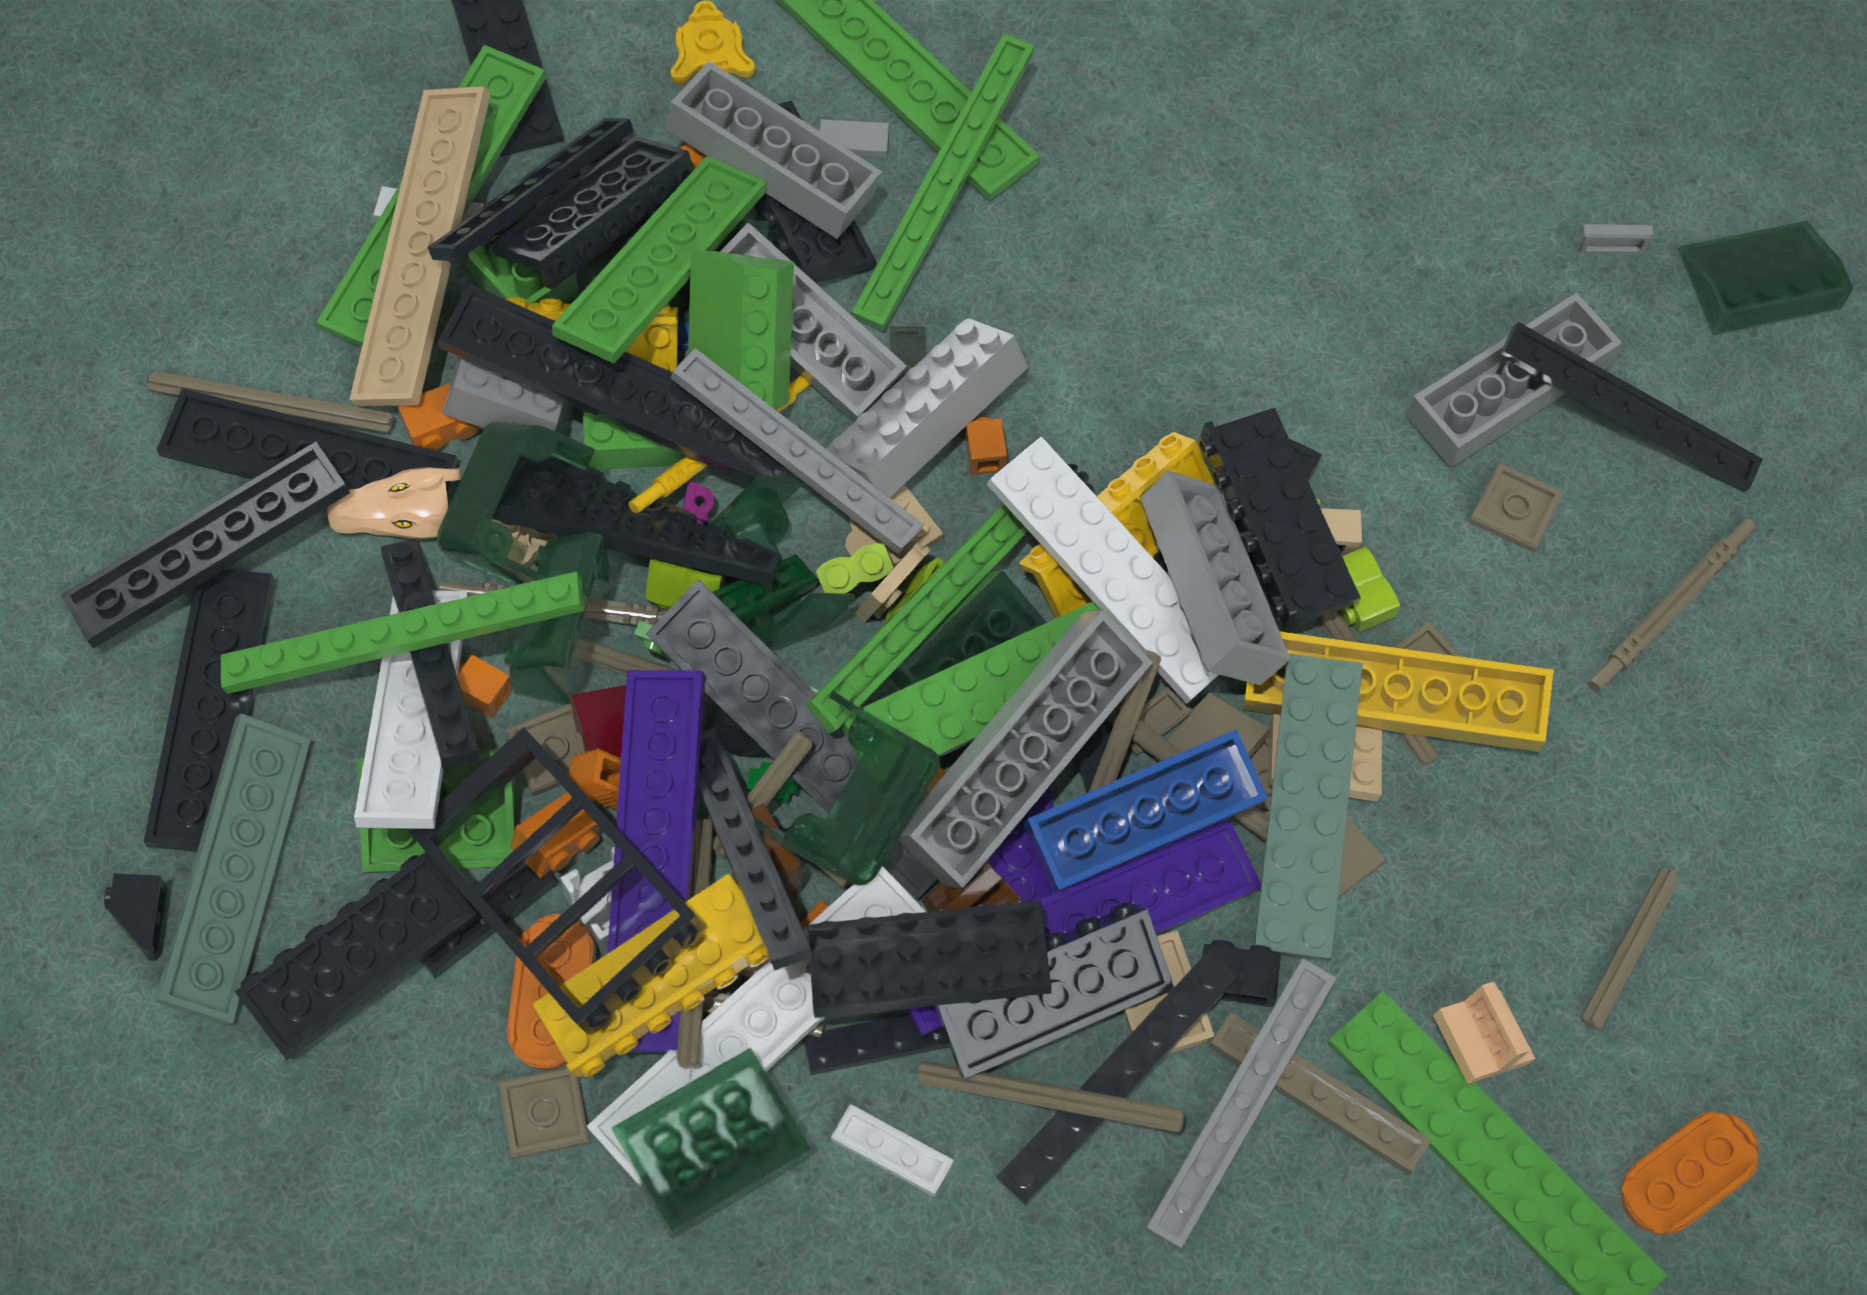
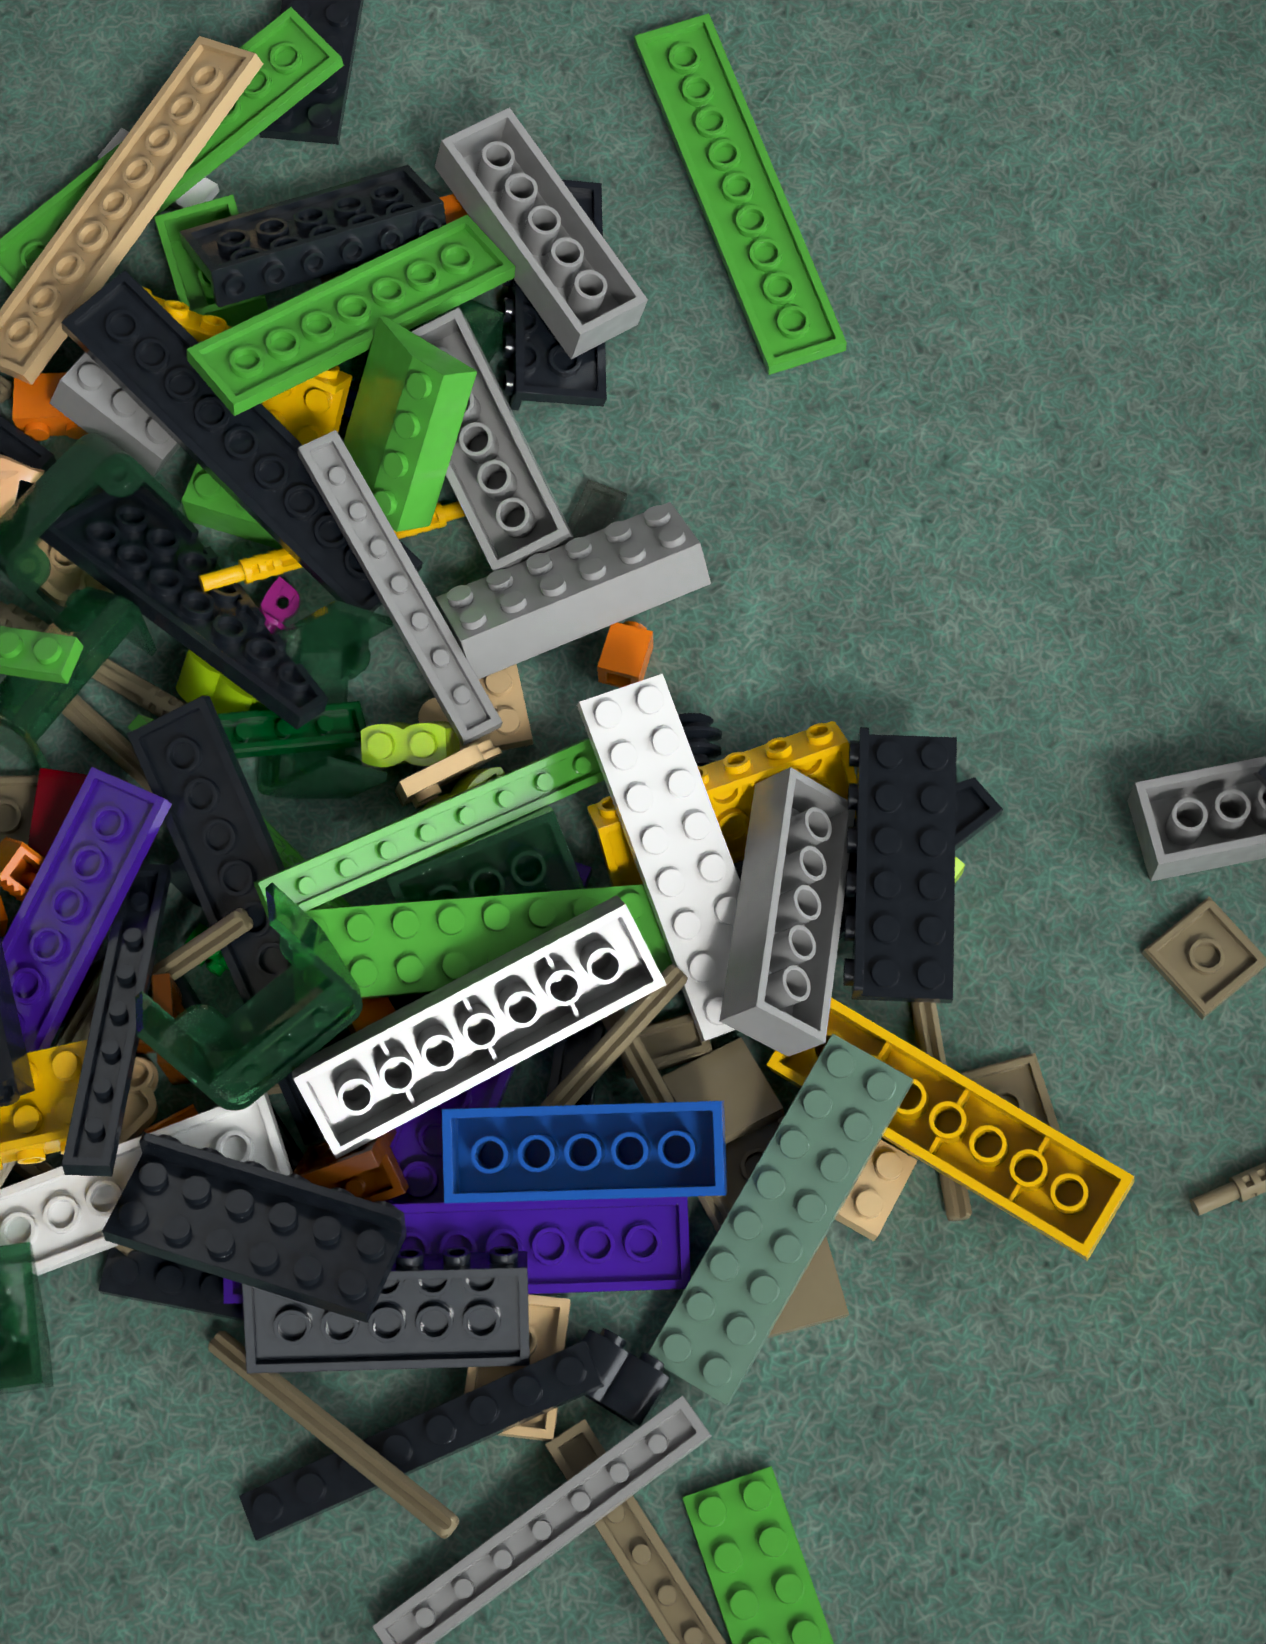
camera: 30 degrees right, 5 degrees up
(529, 190) = (247, 190): black plate -> none
(712, 39) = (545, 90): yellow tile -> none
(859, 137) = (652, 250): light grey tile -> none
(892, 1150) = (145, 1416): white tile -> none
(943, 182) = (721, 334): bright green plate -> none
(1345, 528) = (980, 905): tan panel -> none
(1377, 599) = (976, 989): lime brick -> none
(1483, 1035) = (860, 1569): light nougat bracket -> none
(1630, 948) = (1086, 1537): dark tan axle -> none

